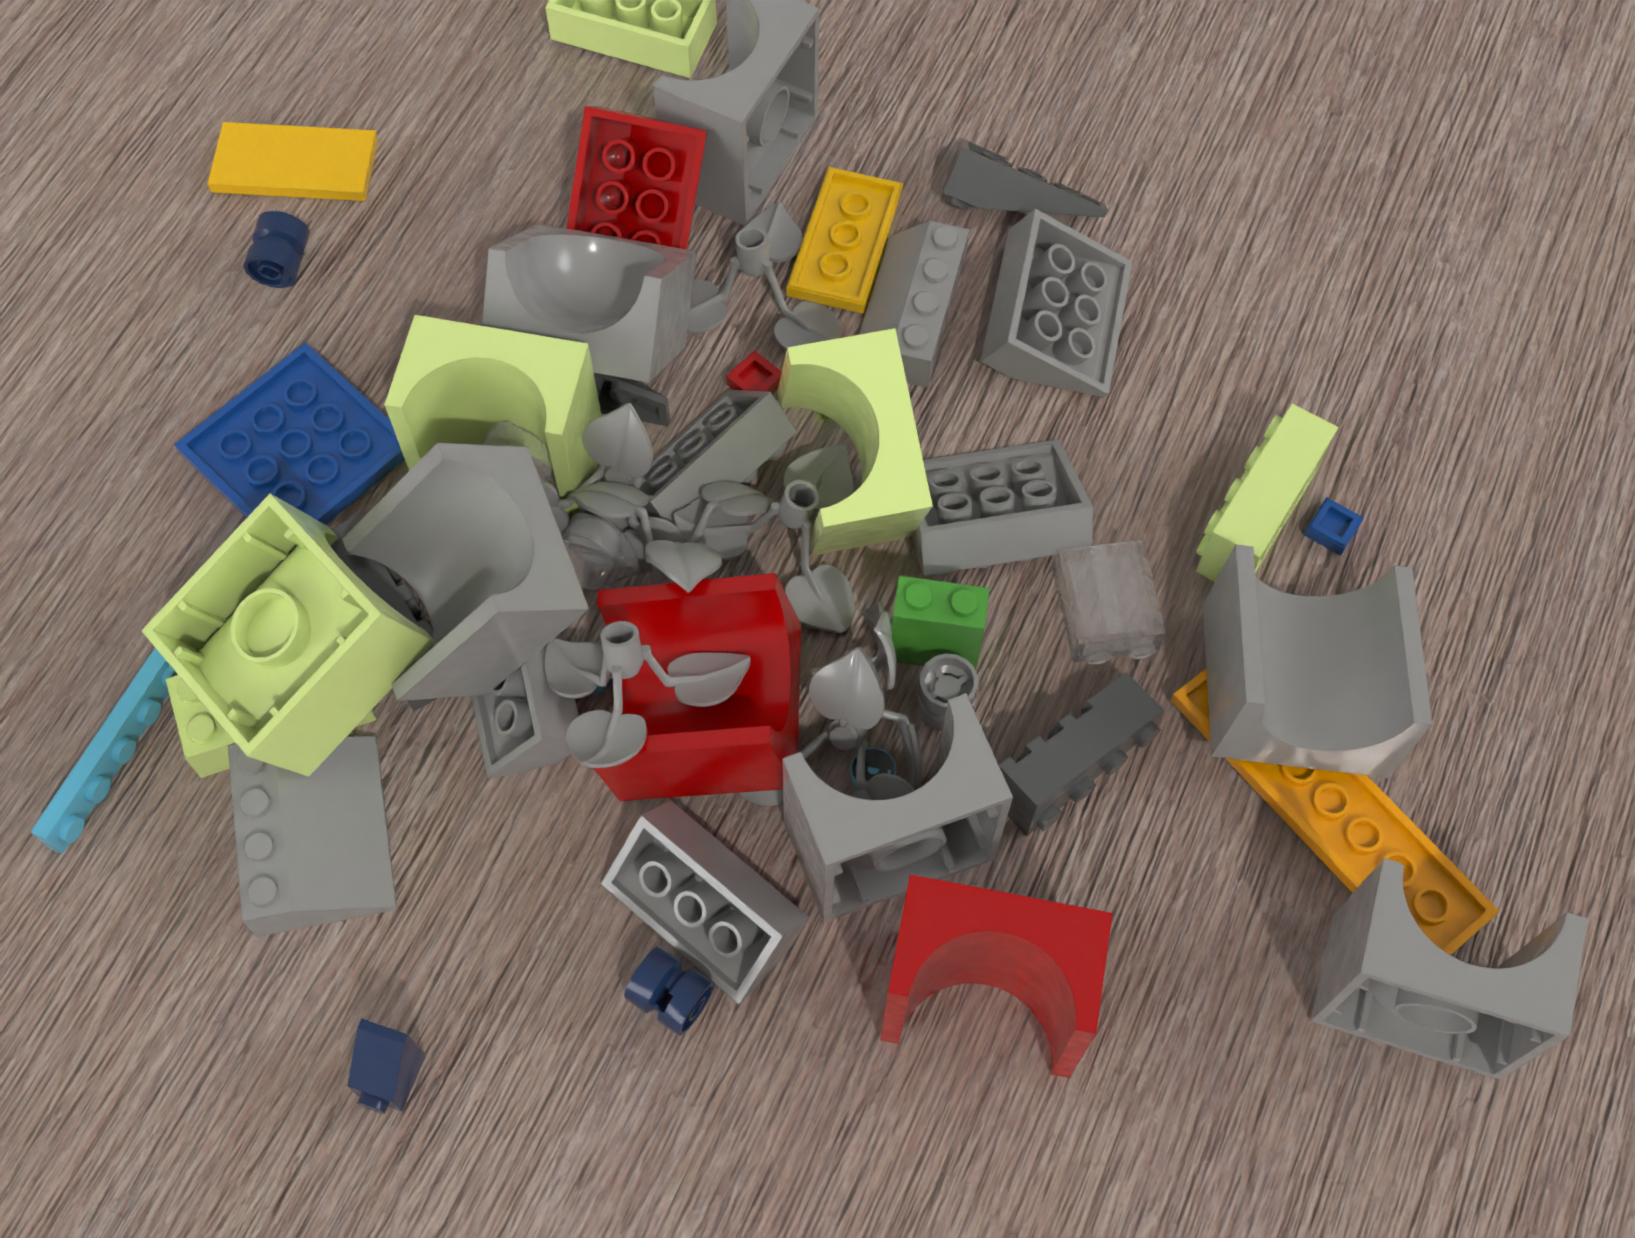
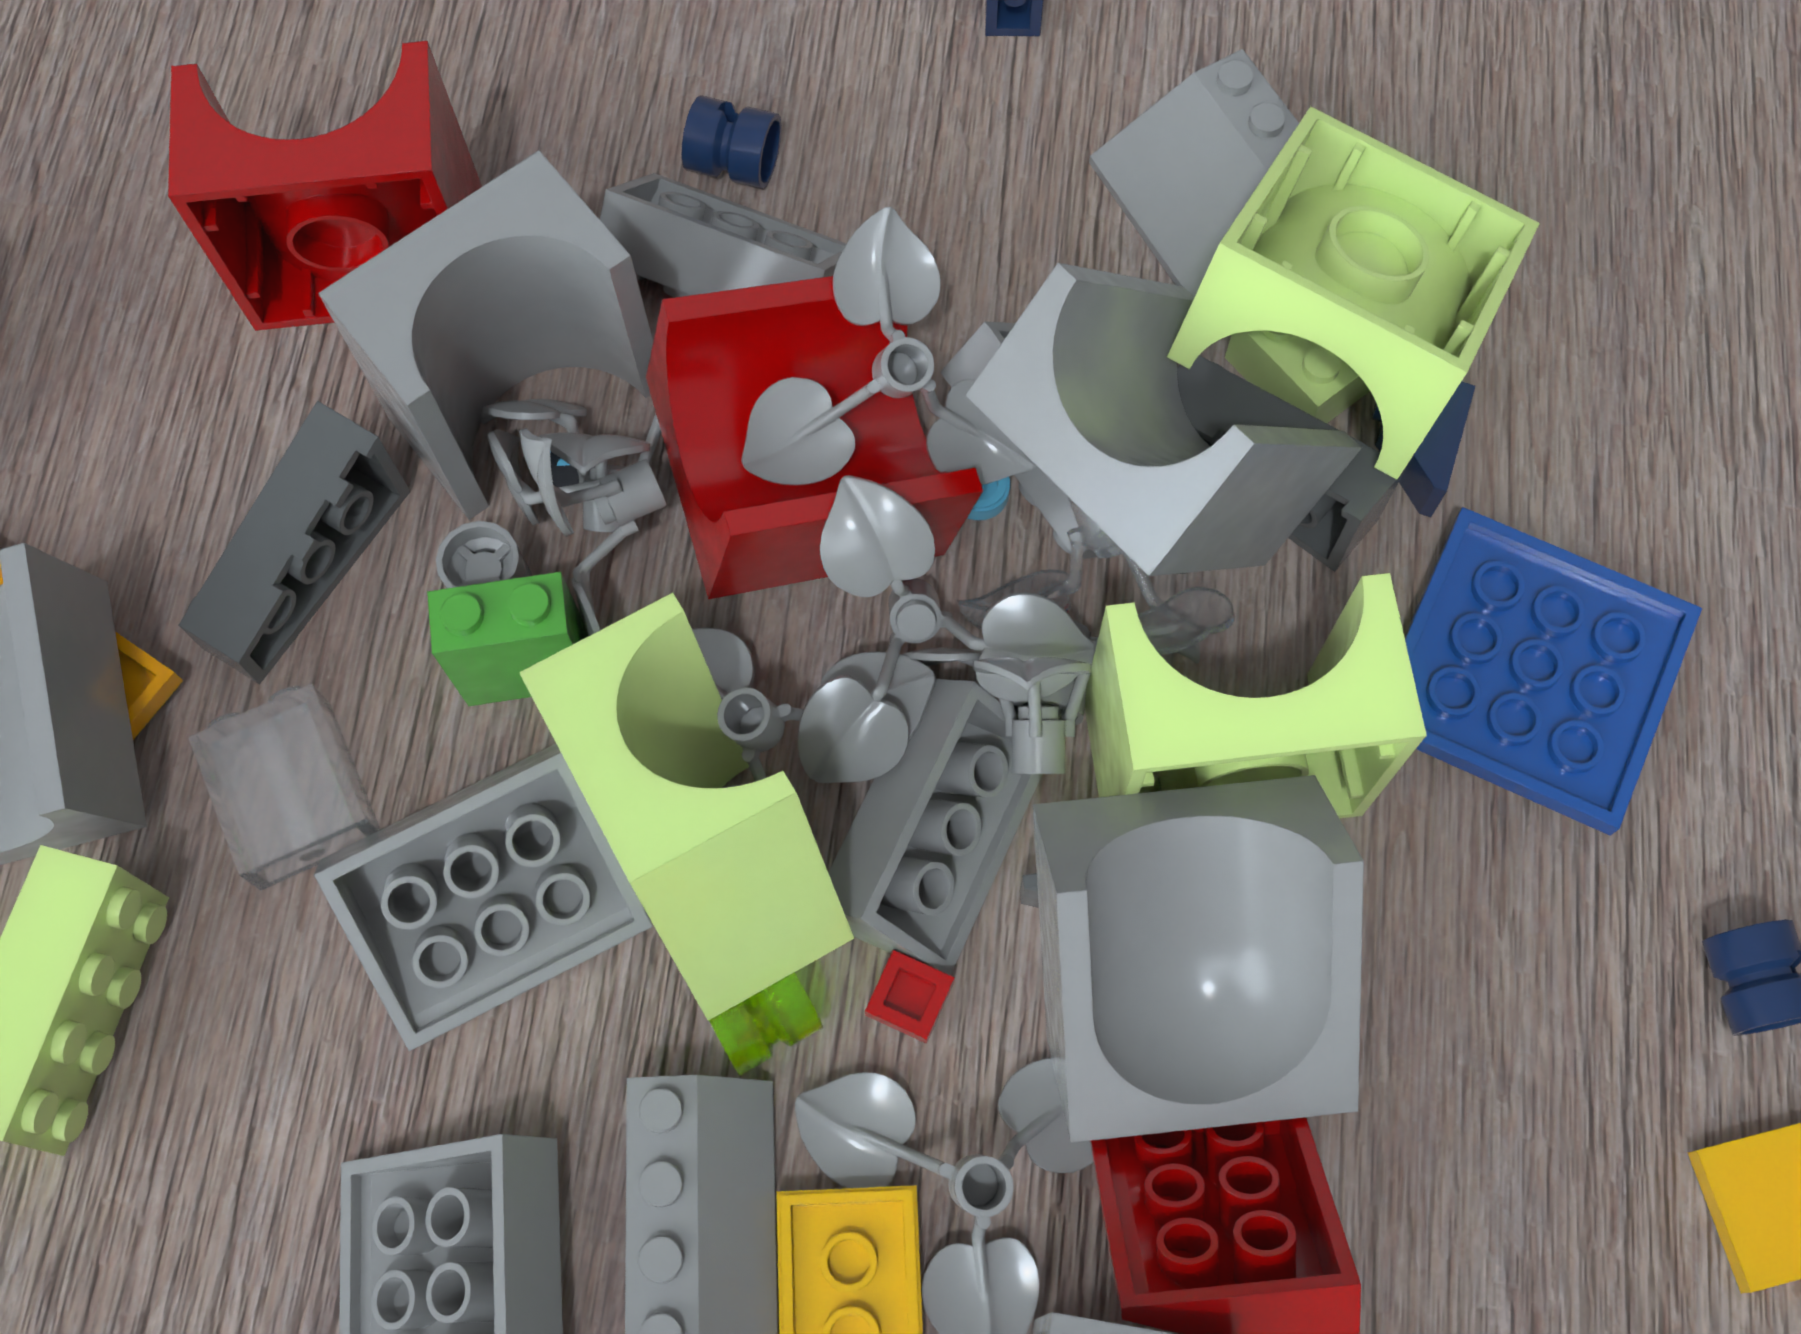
camera: 165 degrees right, 5 degrees up
(109, 749) = (1514, 360): medium azure plate -> none

